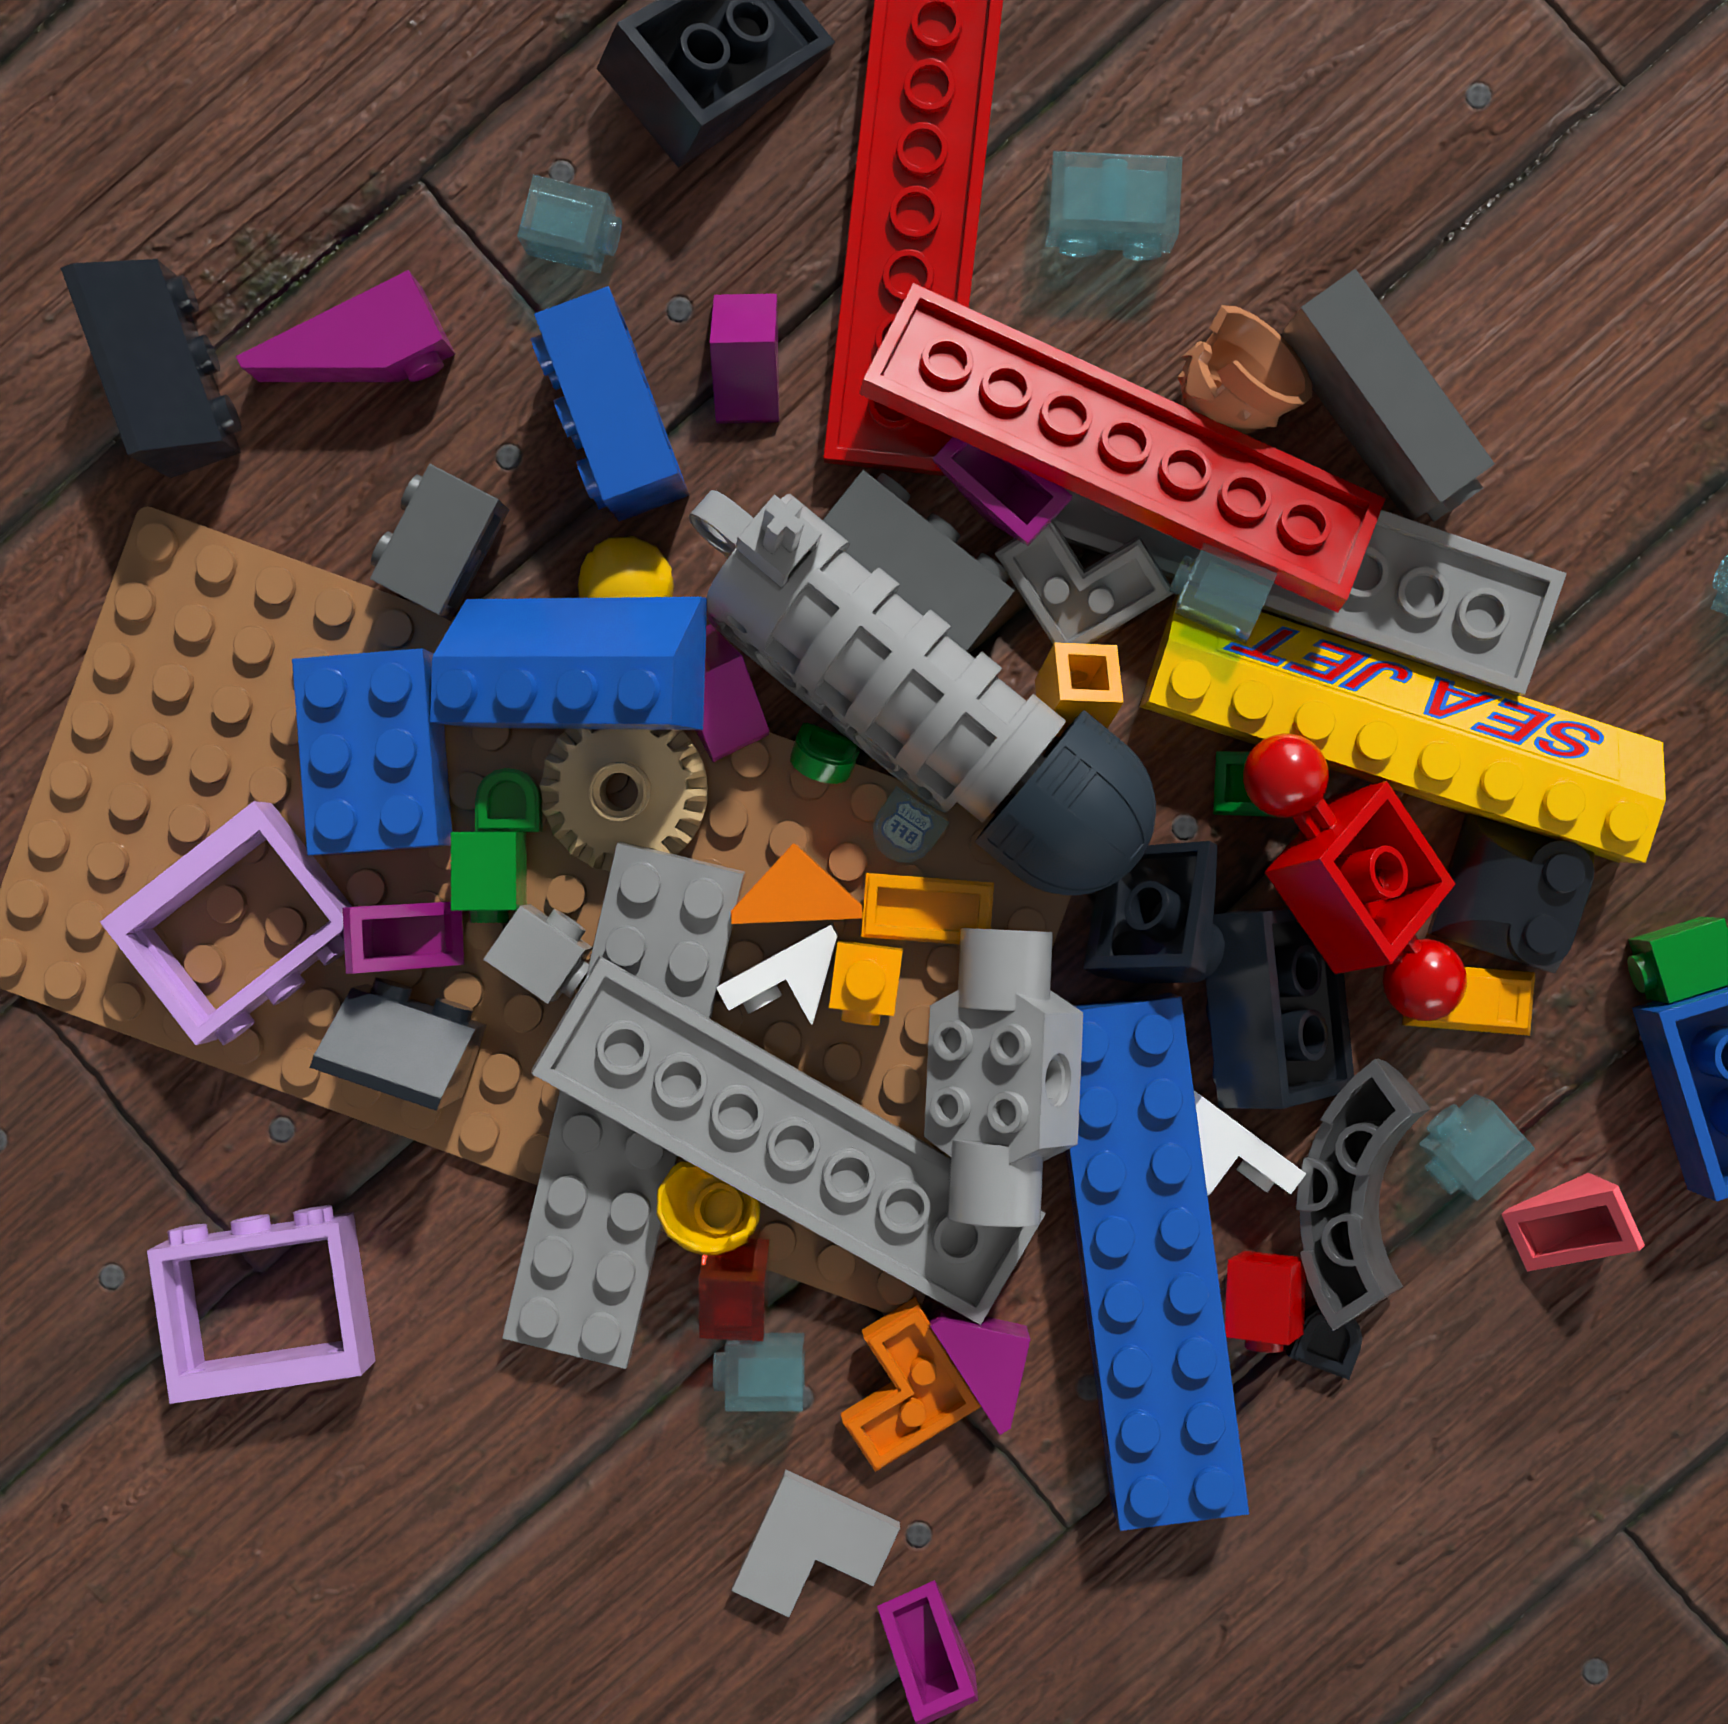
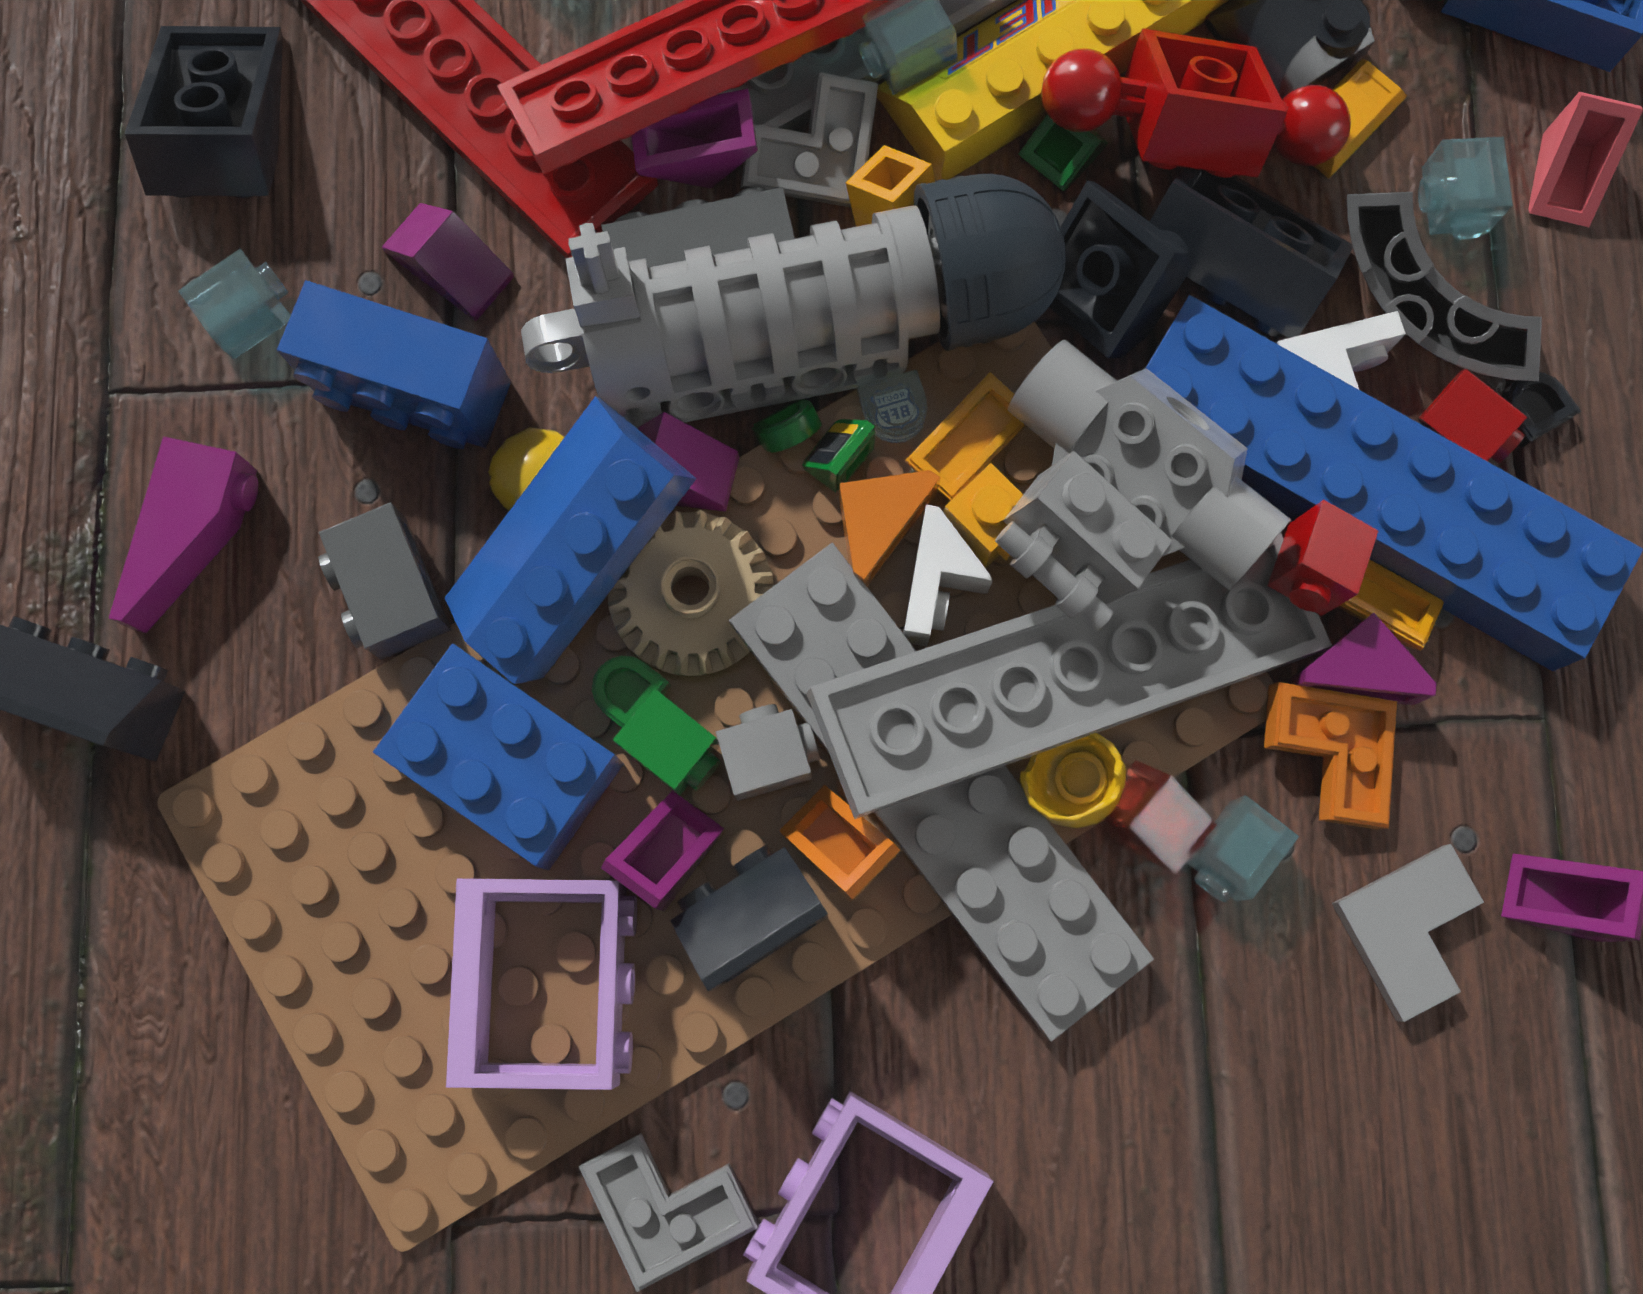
camera: 45 degrees left, 10 degrees down
(139, 1148) = (659, 1229): none -> light grey tile
(505, 1077) = (837, 845): none -> orange slope
(830, 813) = (841, 452): none -> green slope
(895, 1075) = (1081, 540): none -> light grey brick
(1038, 1268) = (1323, 558): none -> red brick
(1058, 1326) = (1398, 603): none -> light orange tile

